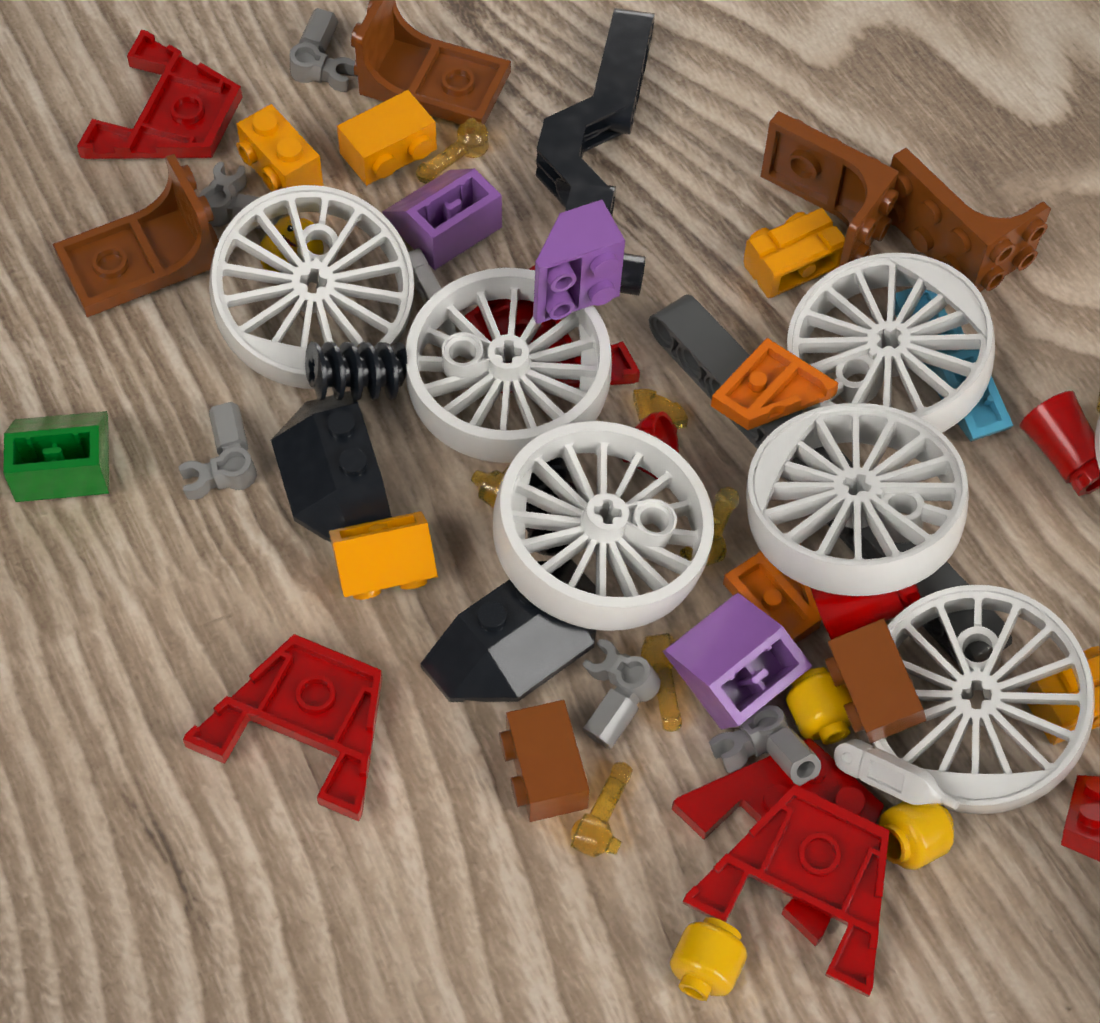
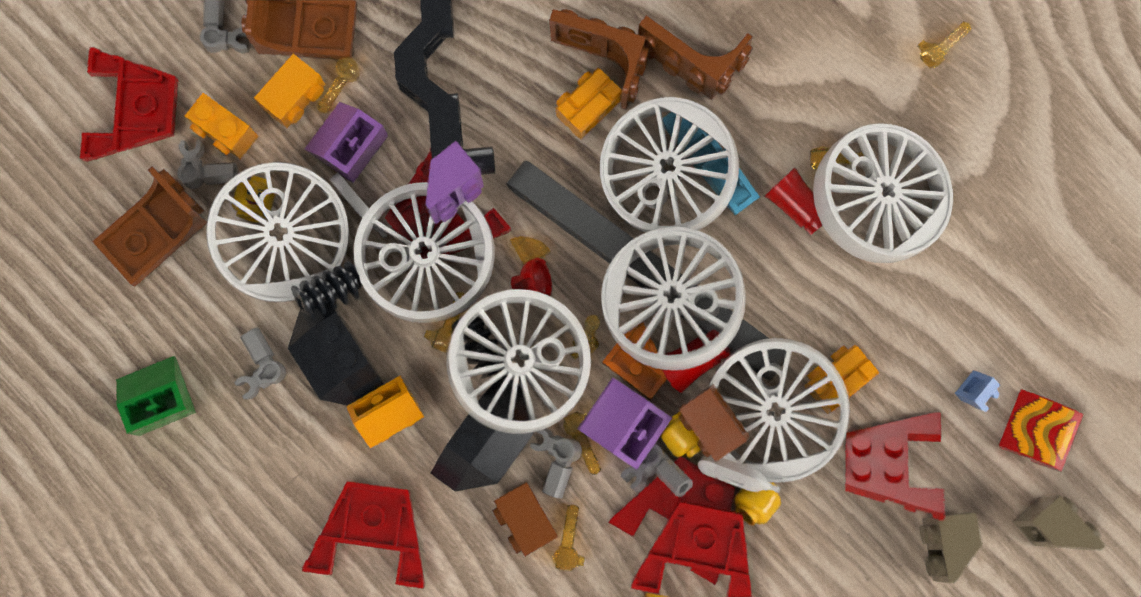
camera: 10 degrees left, 20 degrees up
(771, 387) = (599, 224): orange wing -> none

